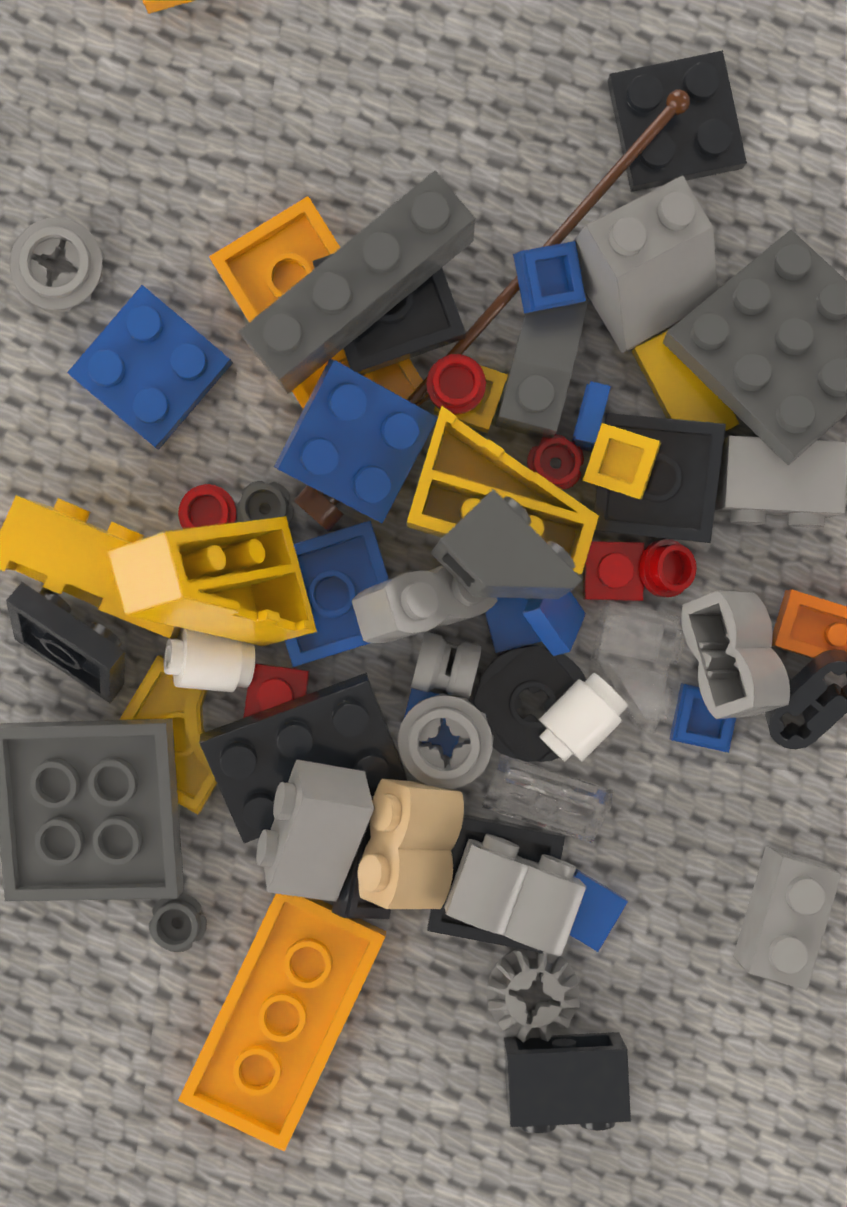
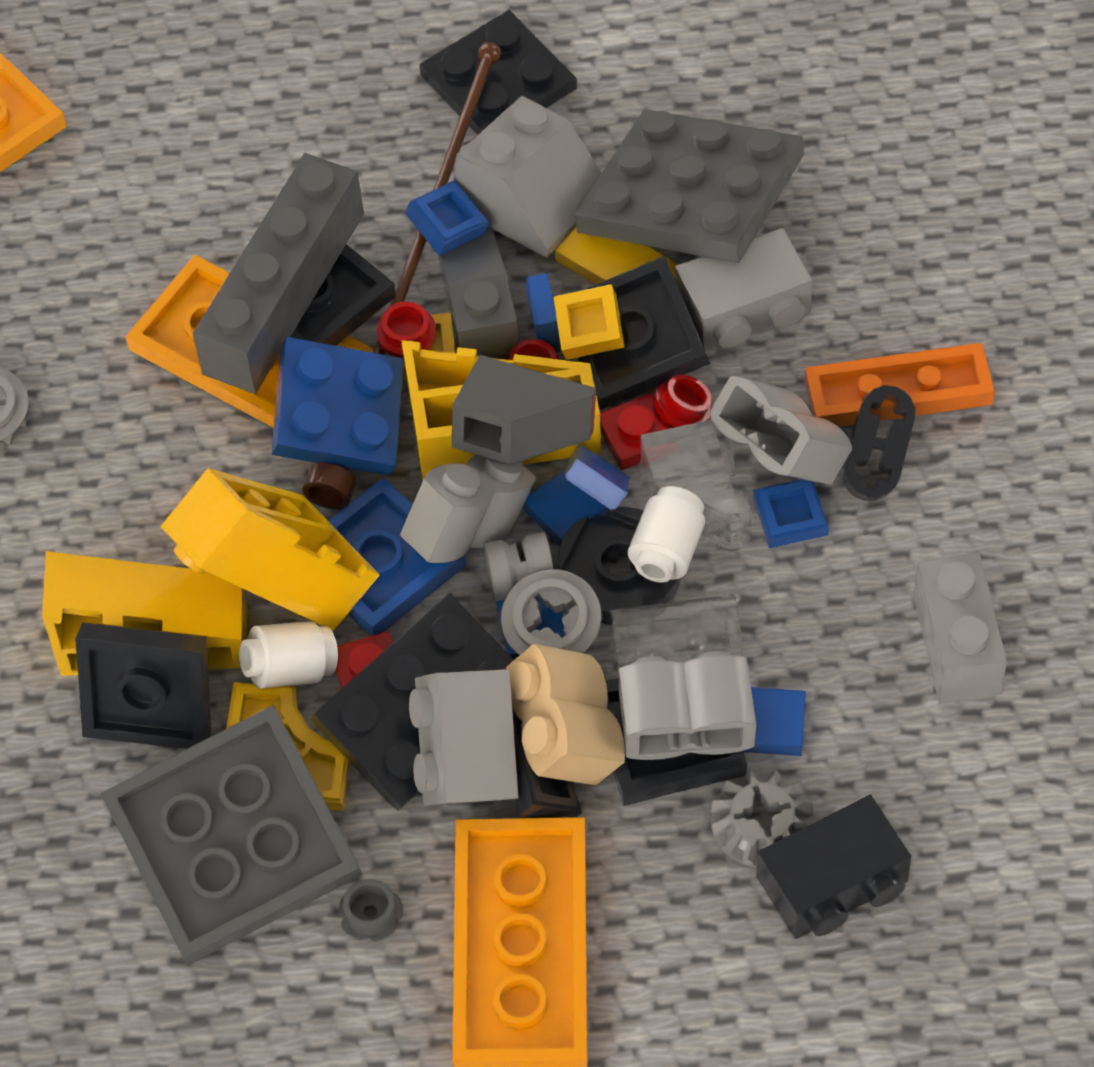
camera: 20 degrees left, 30 degrees down
(150, 367) = (110, 454): blue plate -> none

